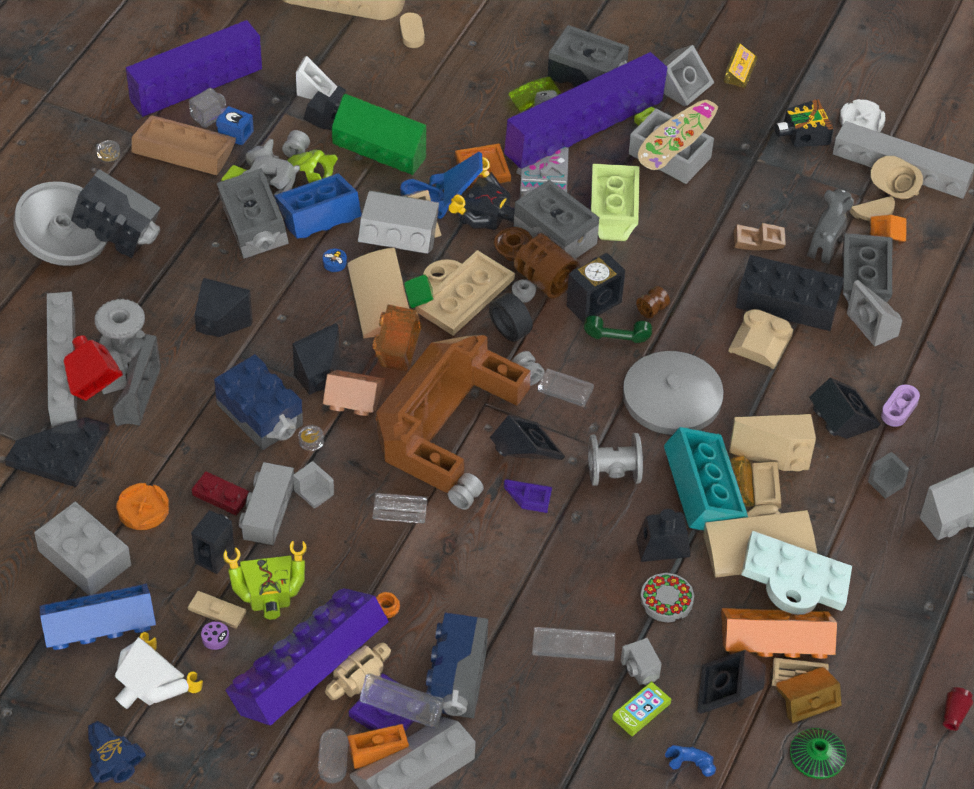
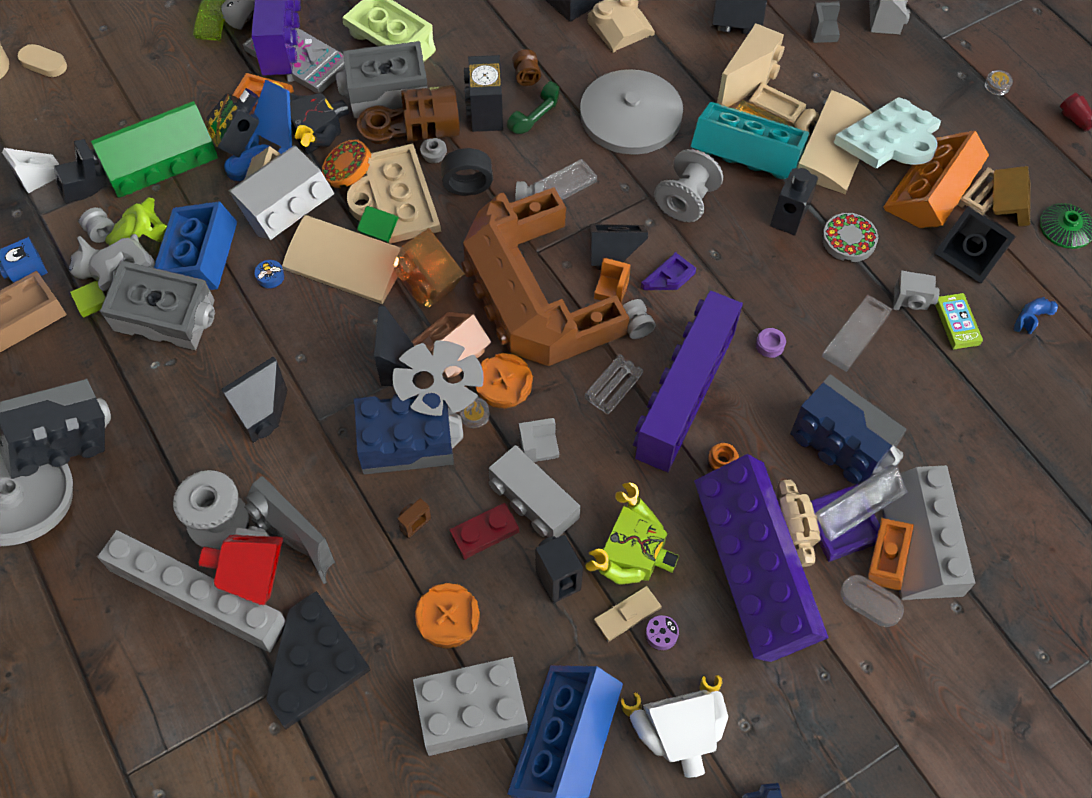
camera: 55 degrees left, 10 degrees up
(199, 446) = (413, 517): none -> reddish brown plate
(313, 373) = (444, 355): none -> light grey piece
(351, 441) = (505, 381): none -> orange tile
(428, 544) = (686, 381): none -> dark purple brick
(444, 157) = (233, 122): none -> black torso
(460, 245) = (346, 163): none -> tile
(488, 463) = (613, 280): none -> orange panel
(517, 590) = (770, 342): none -> medium lavender tile
(941, 635) = (998, 82): none -> clear tile

